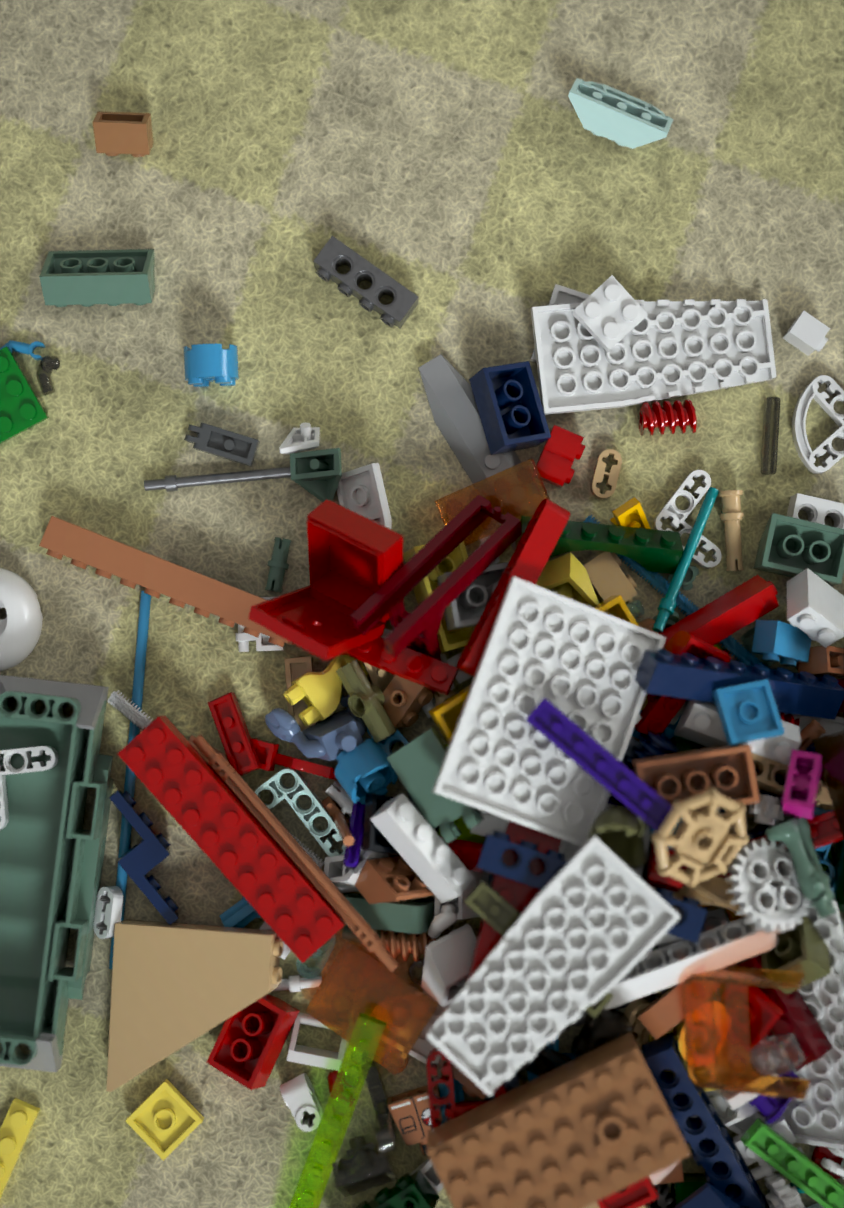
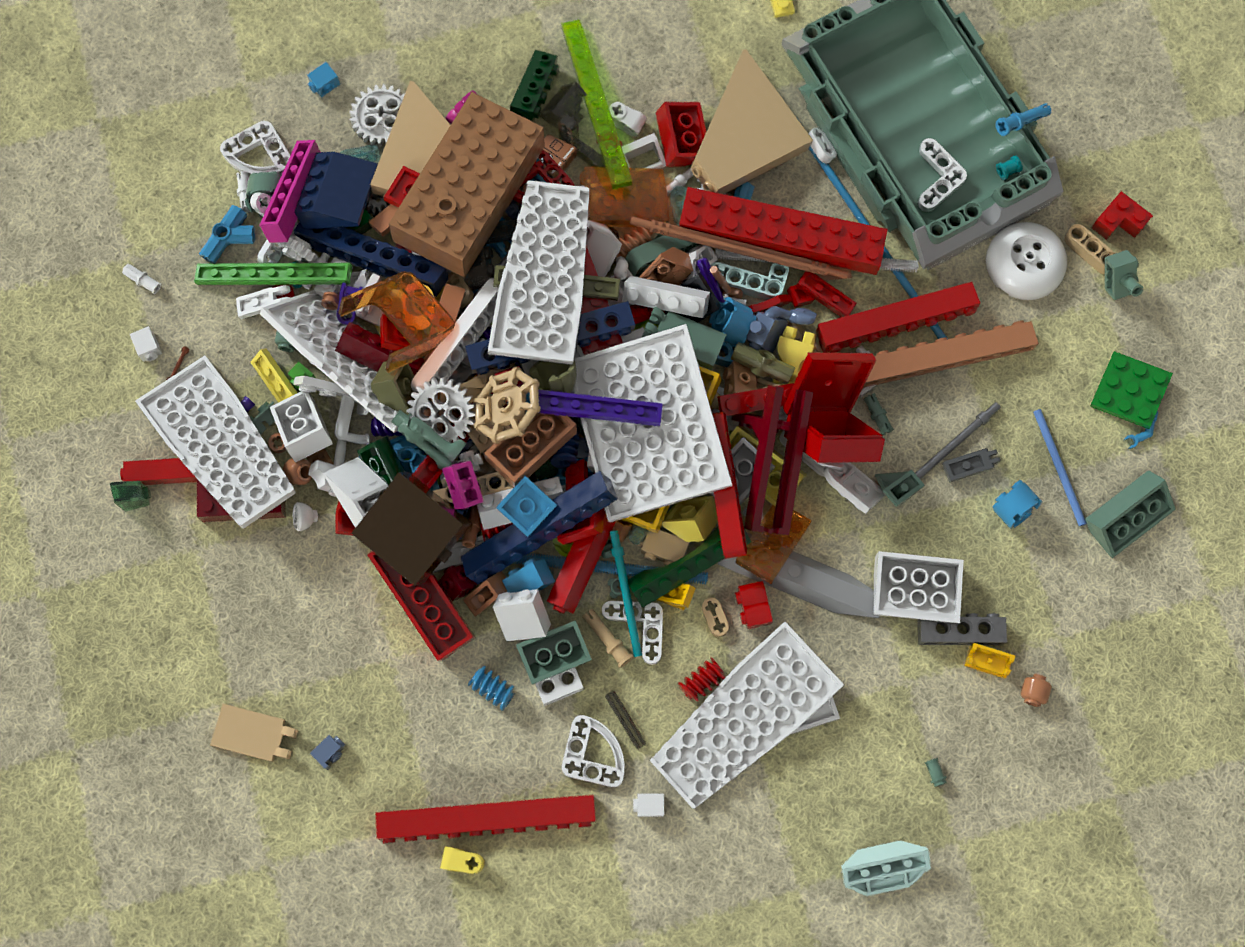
camera: 150 degrees right, 10 degrees down
(44, 372) = (1115, 430): clear smoke arm -> none
(123, 133) = (1191, 615): medium nougat brick -> none
(132, 376) = (1059, 467): none -> medium blue piece
(145, 856) = (825, 189): dark blue bracket -> none
(164, 1119) = (699, 58): light yellow plate -> none
(177, 651) = (897, 317): none -> red brick
(301, 439) = (924, 500): white piece -> none
(337, 173) = (1036, 690): none -> nougat head
(360, 235) = (989, 660): none -> yellow hinge
(380, 352) = (918, 587): none -> white slope
(500, 160) = (935, 772): none -> sand green pin
(509, 407) = (809, 610): dark blue brick -> none
(609, 313) = (790, 716): white plate -> none
(778, 1054) = (368, 319): clear brick -> none
(790, 1115) = (330, 300): none -> nougat bush

